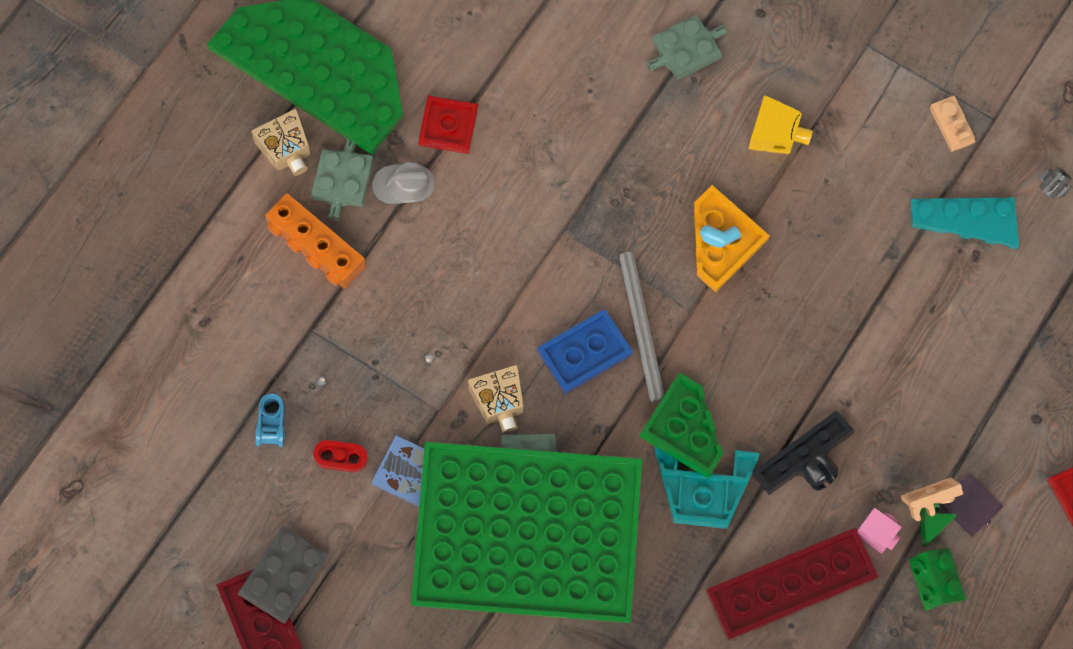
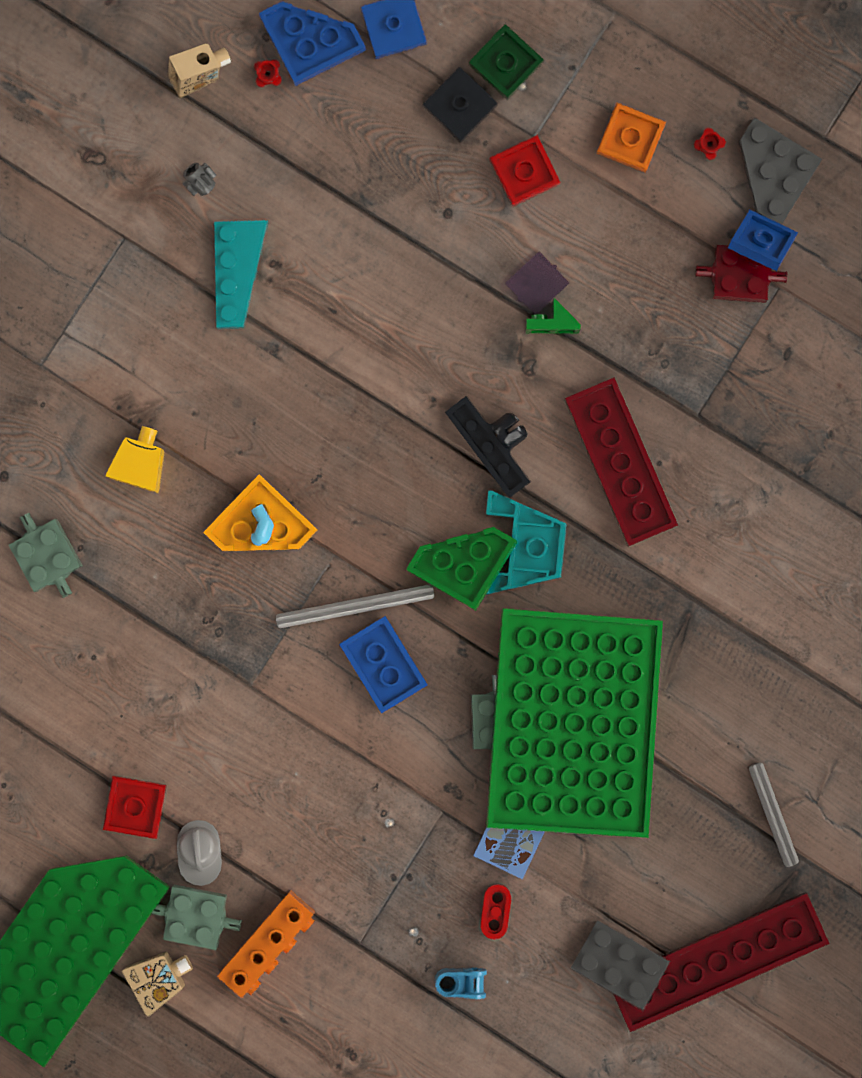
camera: 85 degrees left, 15 degrees up
(498, 397) = (434, 751): tan torso -> none
(880, 531) = (567, 373): bright pink brick -> none
(937, 578) = (614, 319): green bracket -> none
(939, 492) = (538, 321): light nougat plate -> none
(952, 123) = (131, 280): light nougat plate -> none

